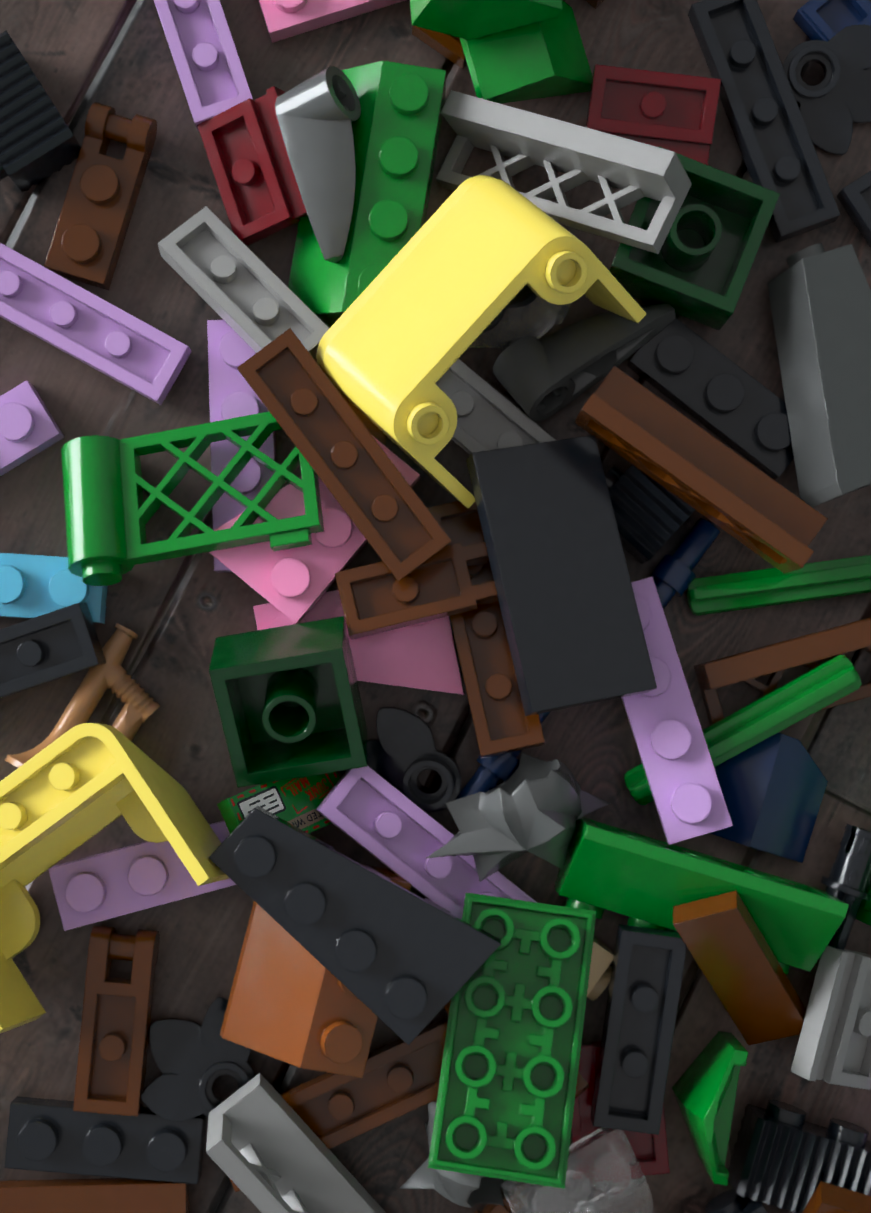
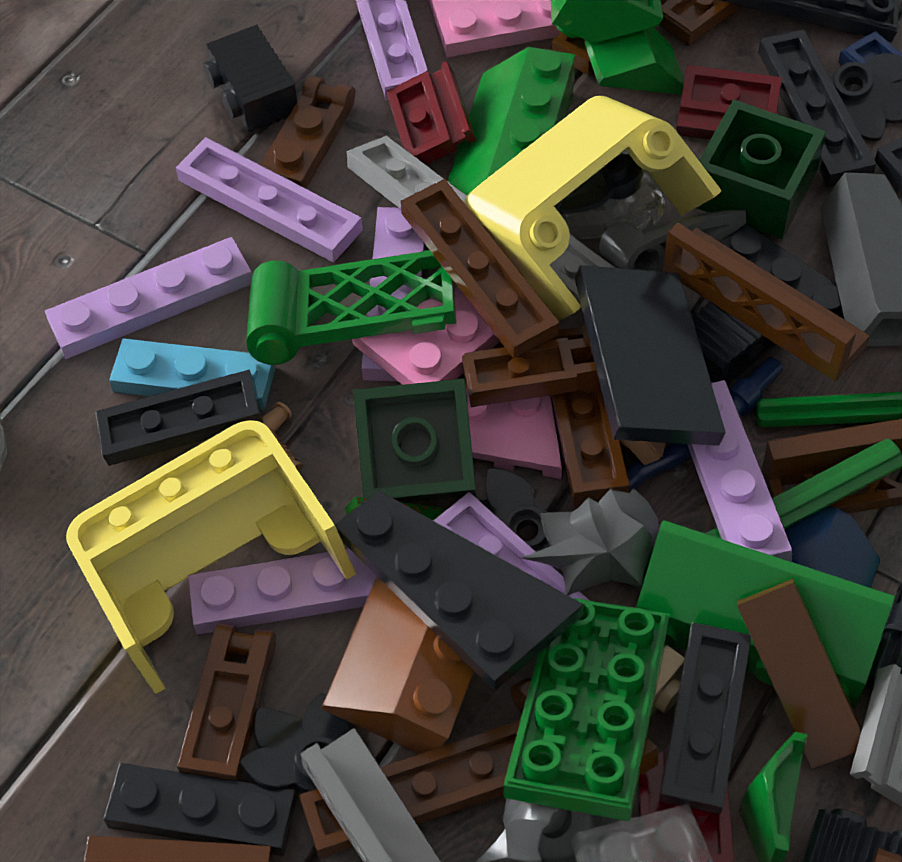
camera: 10 degrees right, 30 degrees down
(321, 151) = (479, 96): dark grey piece -> none
(580, 154) = (680, 99): light grey fence -> none

